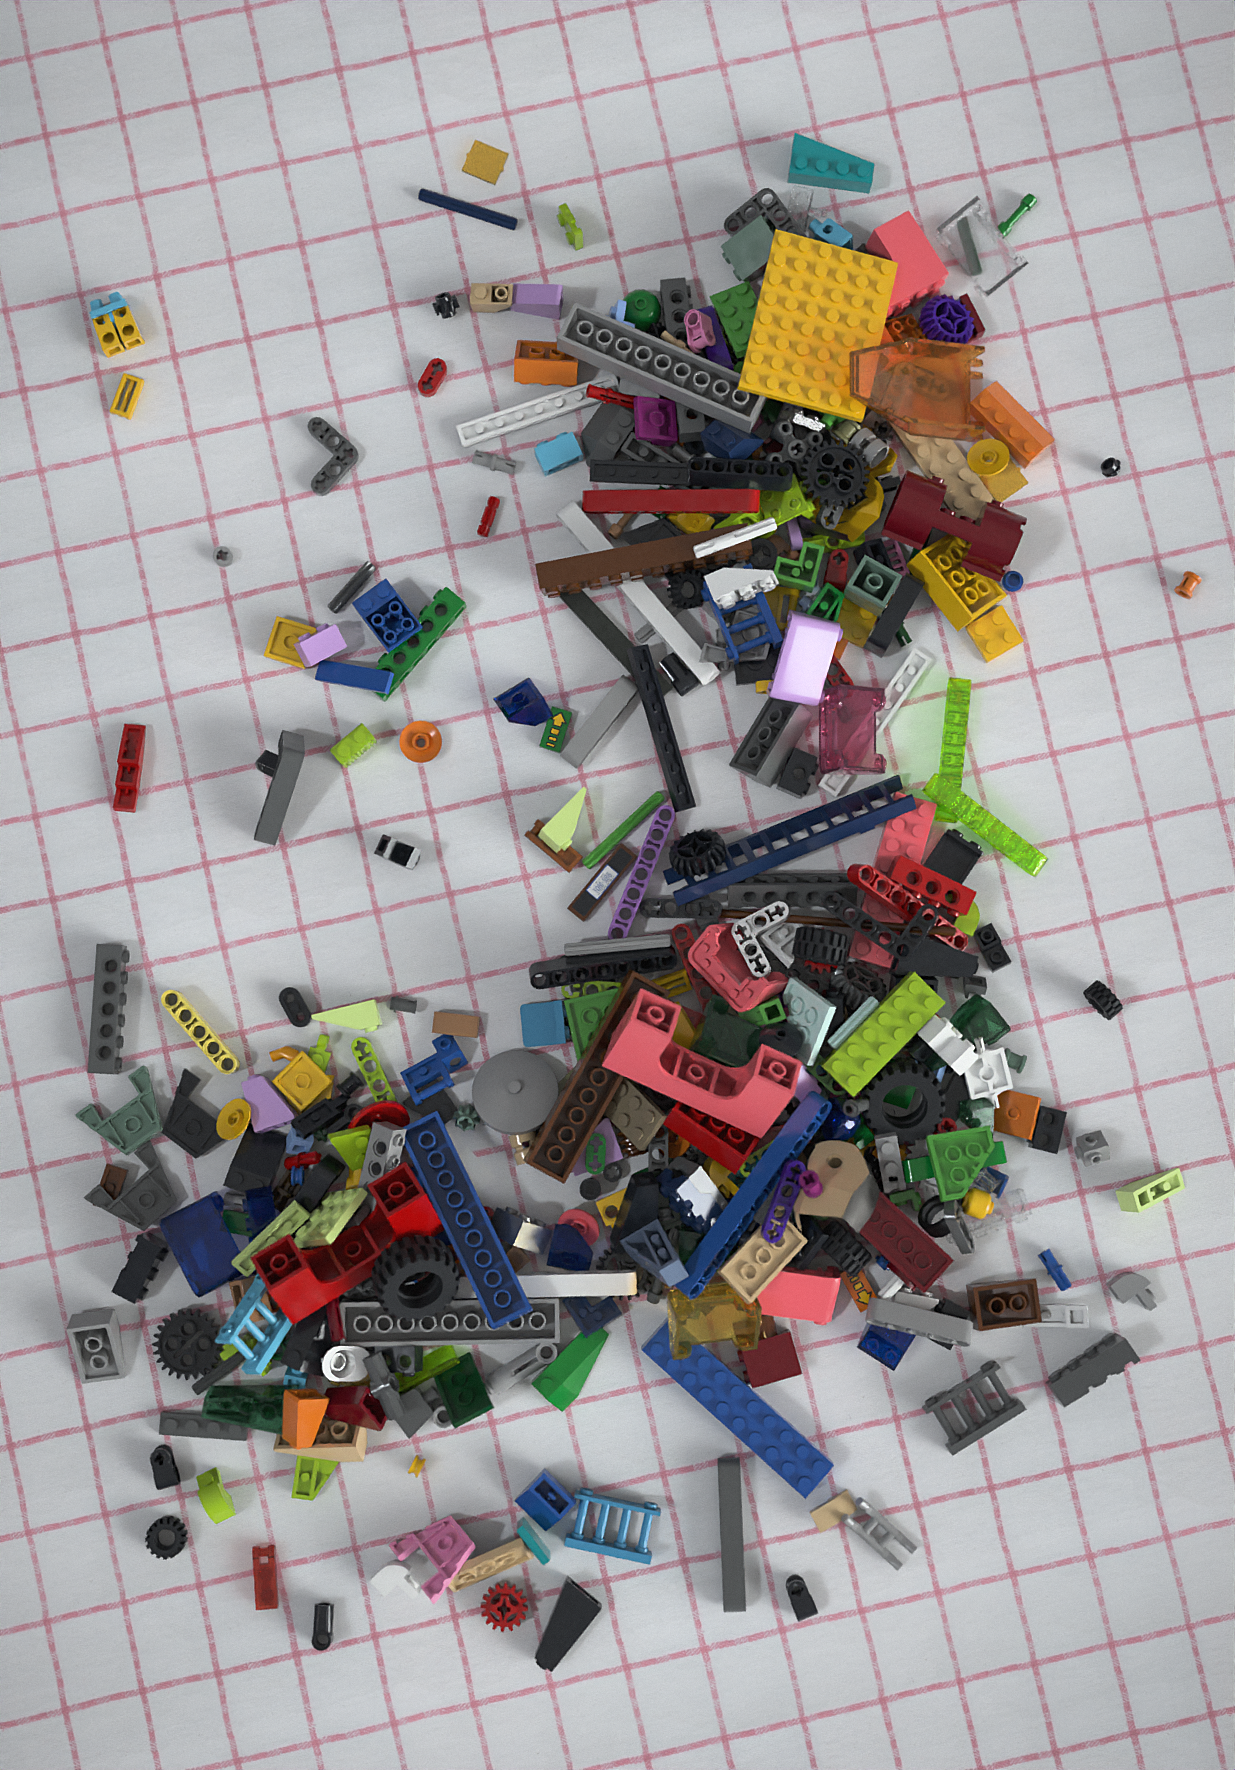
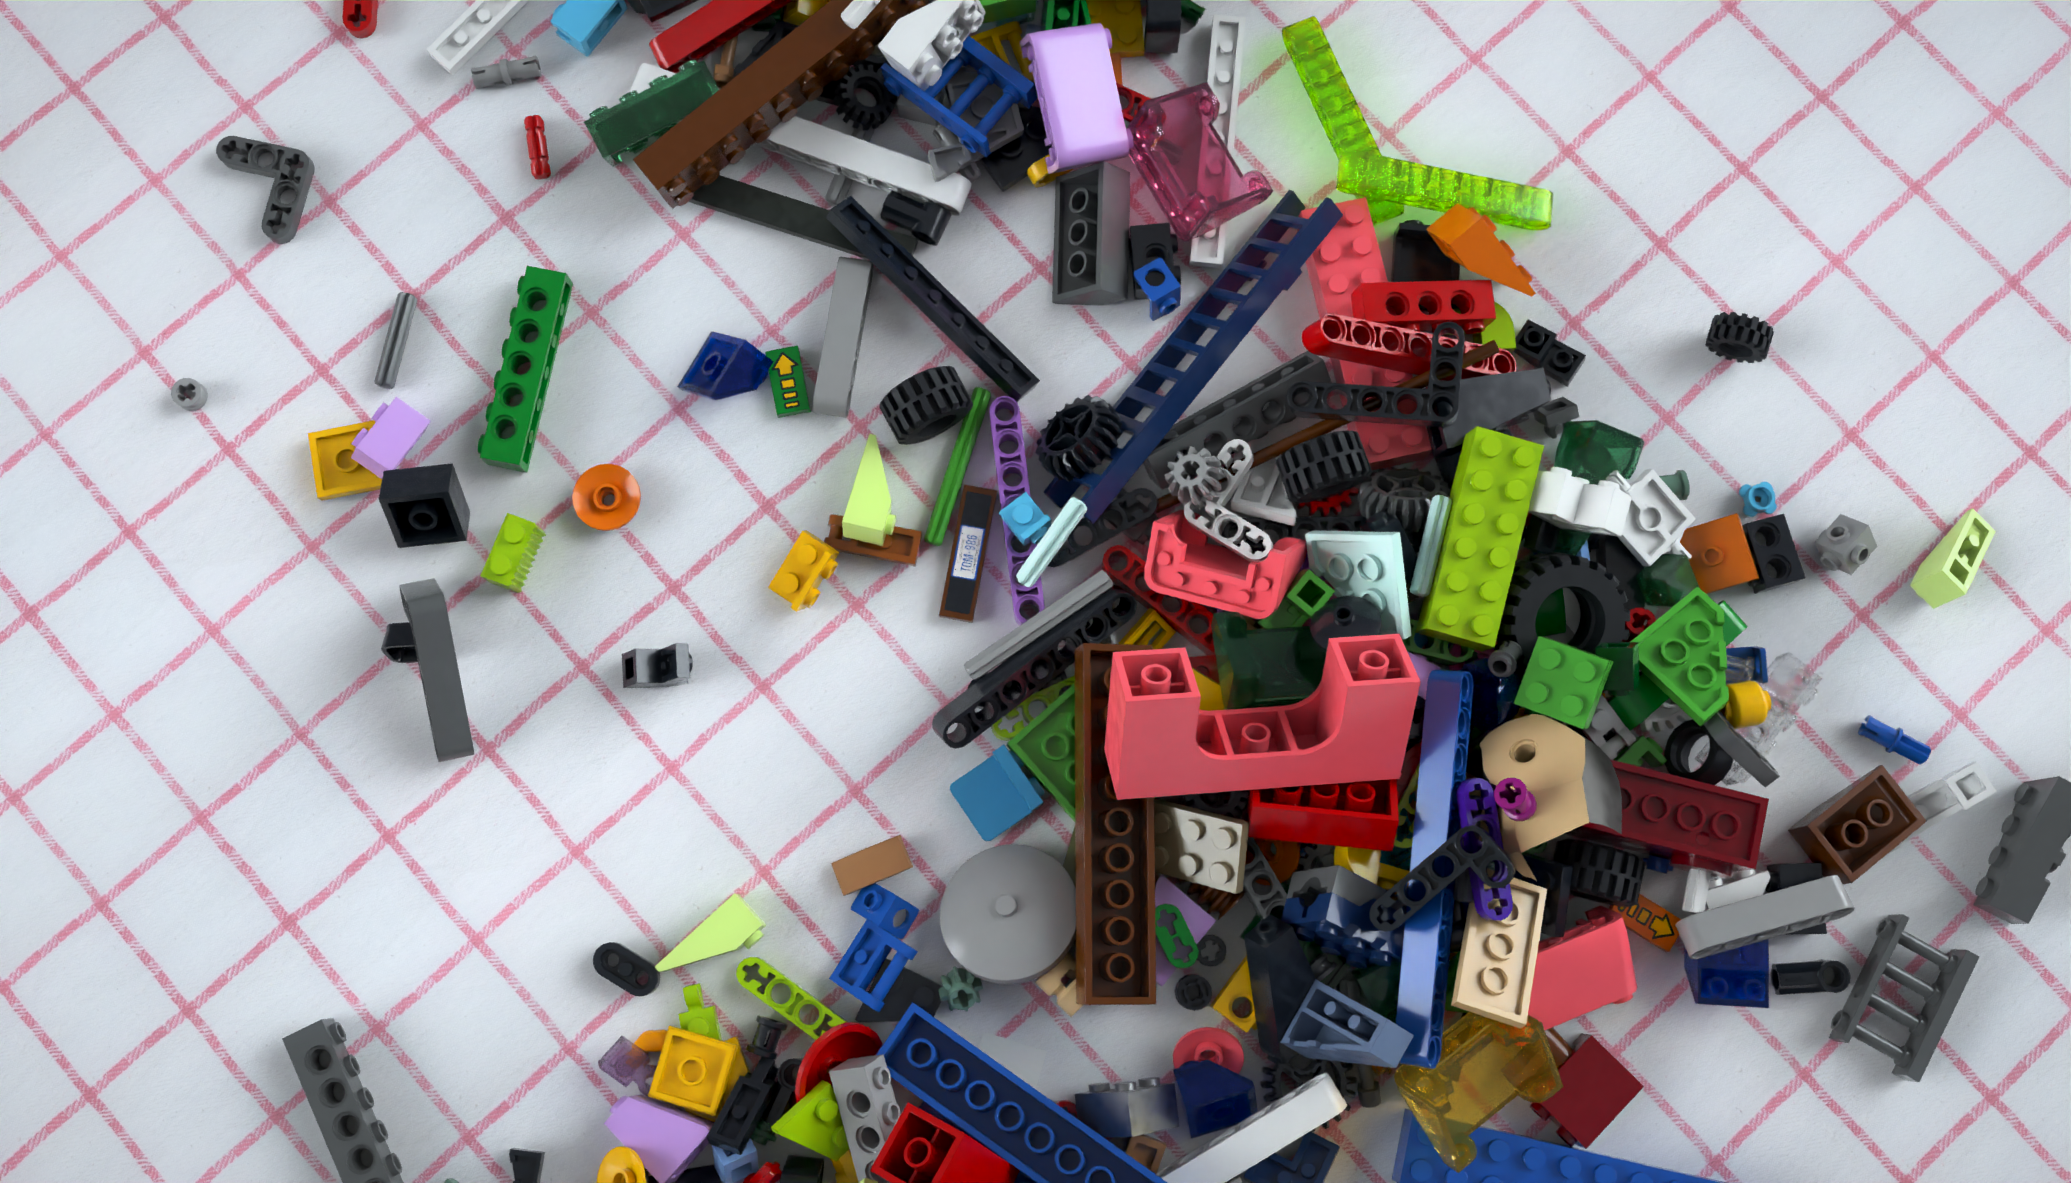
camera: 30 degrees left, 5 degrees down
(129, 768) = (205, 759): red slope -> none
(191, 1026) = (488, 1082): light yellow beam -> none
(269, 1058) = (628, 1063): none -> clear purple plate
(319, 694) = (424, 505): none -> black brick
(354, 676) = (473, 449): blue tile -> none
(387, 615) = (463, 348): blue slope -> none
(403, 1005) = (781, 879): dark grey pin -> none
(506, 842) = (804, 570): none -> yellow bracket
(563, 537) = (650, 112): none -> clear green wedge
(623, 788) = (926, 405): none -> black tyre
(642, 883) = (1026, 519): none -> medium azure bracket
(648, 904) = (1051, 542): none -> light aqua axle
(741, 907) = (1194, 489): none -> light grey gear
(745, 1203) = (1436, 883): none -> black beam
(791, 799) = (1164, 297): none -> blue bracket
(879, 1136) = (1563, 682): none -> bright green brick
(915, 1145) = (1625, 669): none -> dark green brick
(926, 1367) = (1808, 977): none -> black piece
(981, 870) = (1472, 244): none -> orange slope
(1066, 1092) = (1767, 499): none -> medium azure plate
(1130, 1284) = (2007, 704): light grey brick -> none

